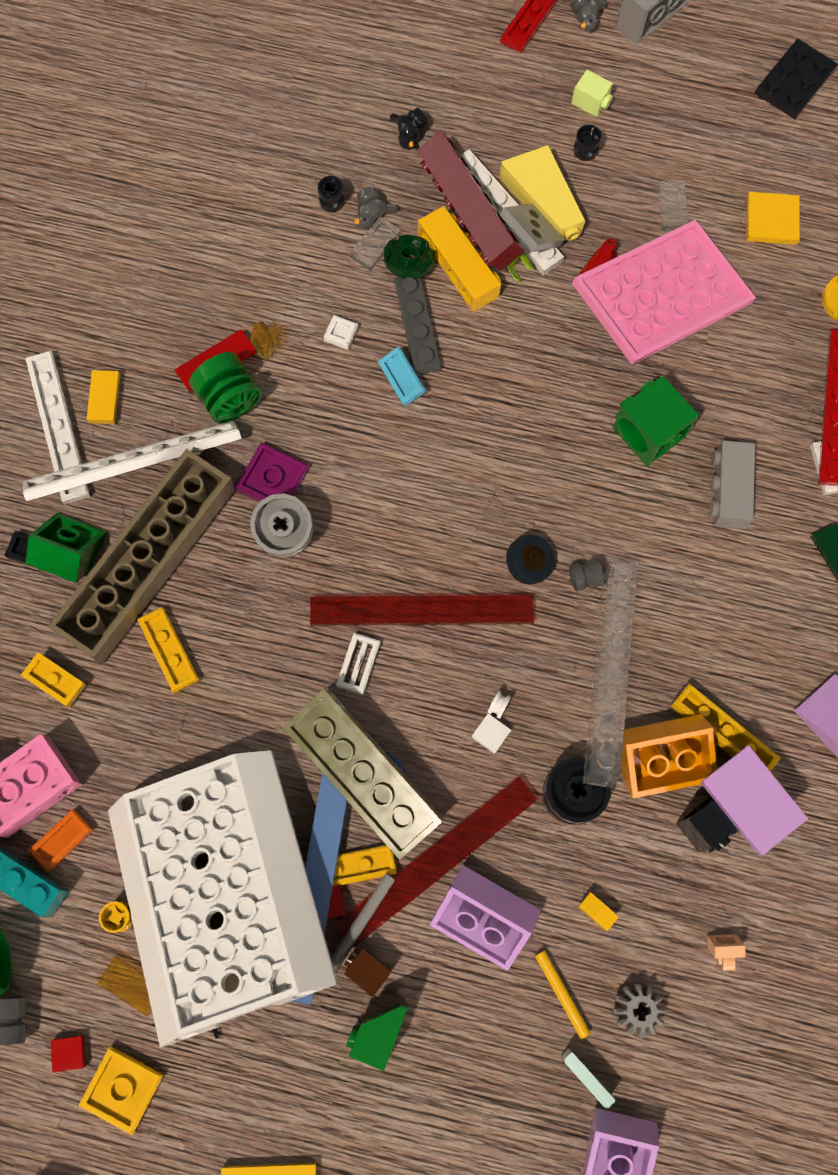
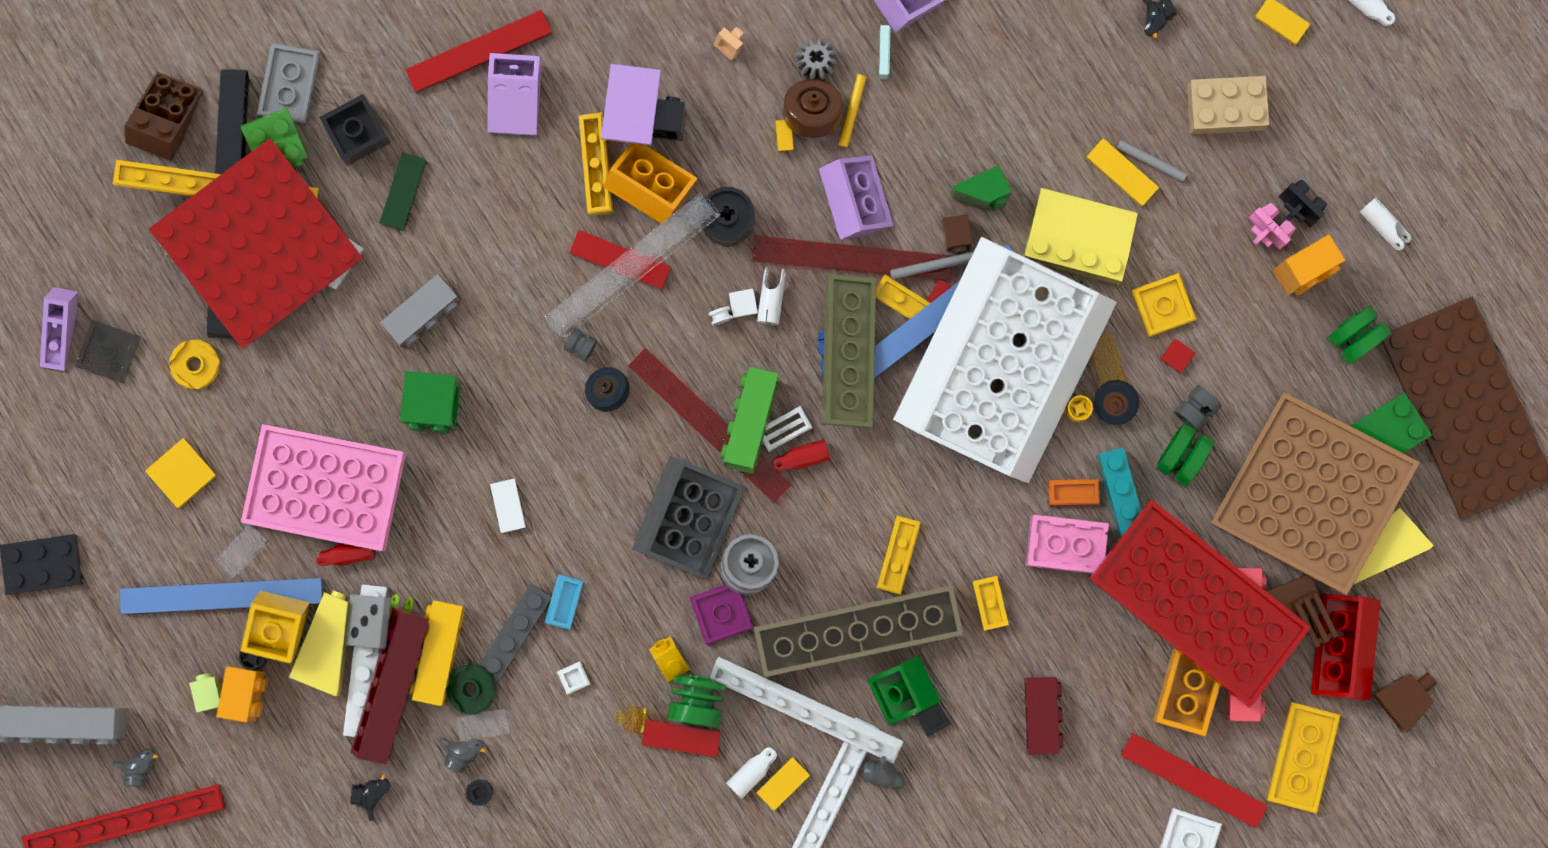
camera: 130 degrees left, 10 degrees up
(25, 468) = (883, 774): none -> dark grey animal
(87, 955) = (1116, 402): none -> black wheel
(135, 381) = (751, 772): none -> white piece
(253, 1081) = (1080, 236): none -> light yellow slope
(280, 405) = (668, 658): none -> yellow bracket
(321, 653) = (803, 456): none -> red piece
(367, 521) = (688, 517): none -> dark grey slope
(390, 639) = (751, 420): none -> bright green brick
(470, 757) = (771, 301): none -> white piece
(515, 407) = (508, 505): none -> white tile
(568, 104) = (242, 694): none -> light orange brick
(595, 163) = (275, 626): none -> yellow brick
(598, 960) = (813, 108): none -> reddish brown wheel
(642, 667) = (604, 253): none -> red tile
(652, 165) = (214, 595): none -> medium blue tile

